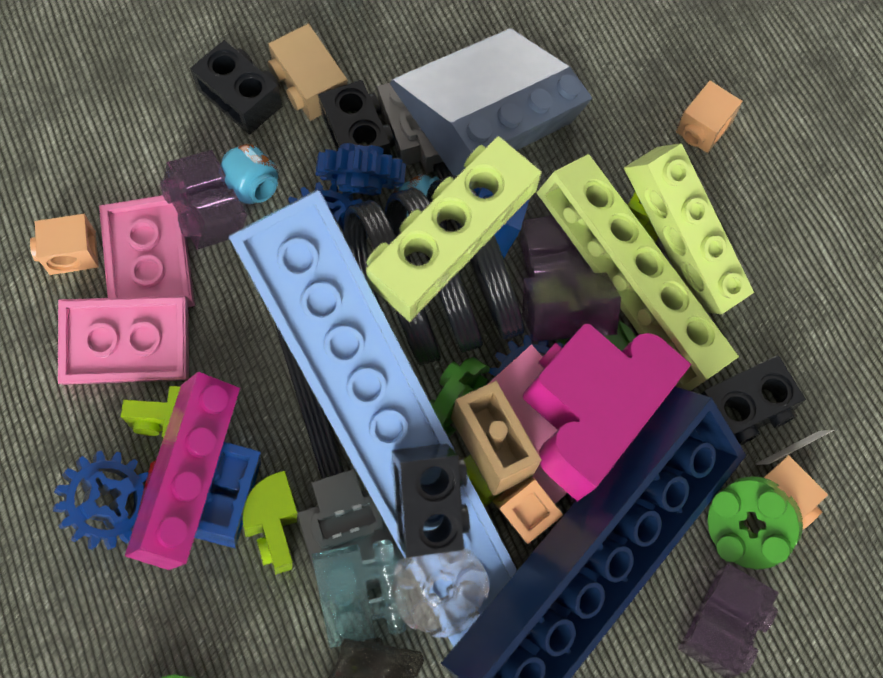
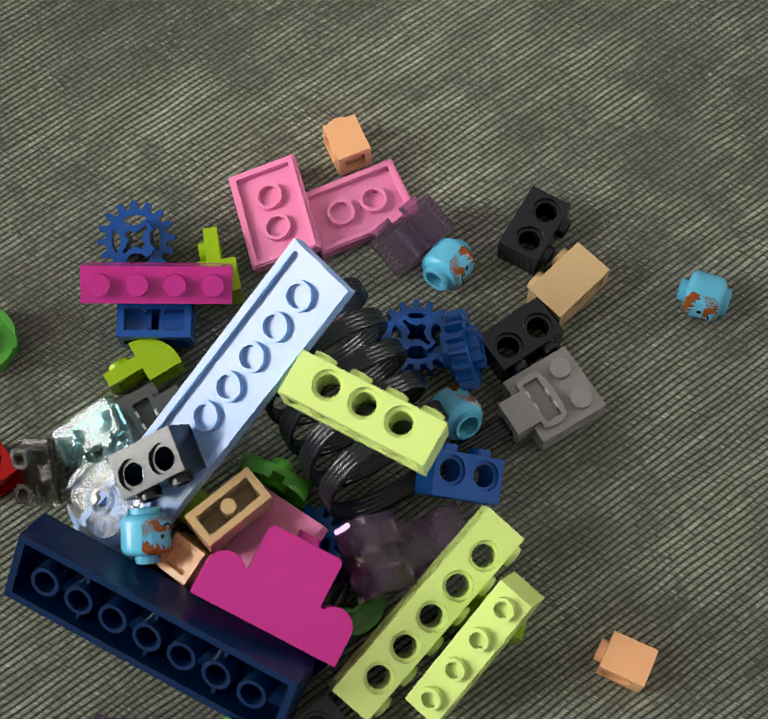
camera: 80 degrees right, 0 degrees up
(491, 91) = (575, 445): sand blue slope -> none
(501, 539) = (146, 534): none -> medium azure head

